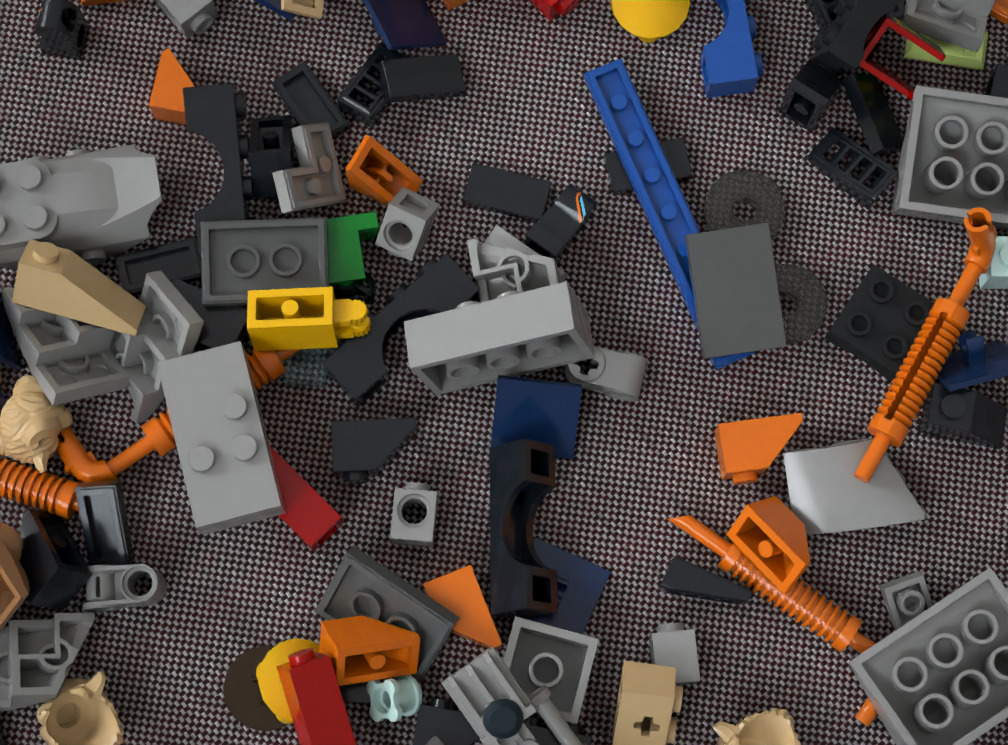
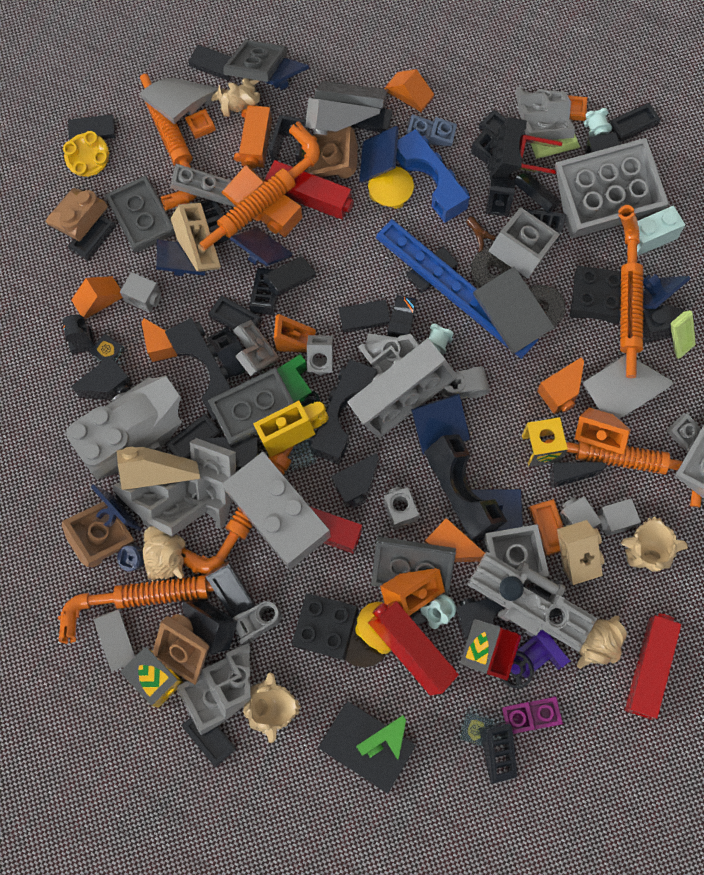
camera: 20 degrees left, 5 degrees down
(67, 119) = (103, 382): none -> black slope
(94, 71) = (106, 347): none -> tile
(217, 642) = (325, 626): none -> black brick
(598, 284) = (440, 337): none -> light aqua brick
(623, 640) = (548, 521): none -> orange tile
(667, 536) = (543, 452): none -> yellow piece
(732, 684) = (618, 517): none -> light grey brick
(751, 139) = (479, 232): none -> reddish brown bar
(806, 190) = (524, 242): none -> light grey brick
(980, 448) = (683, 333): none -> yellowish green tile

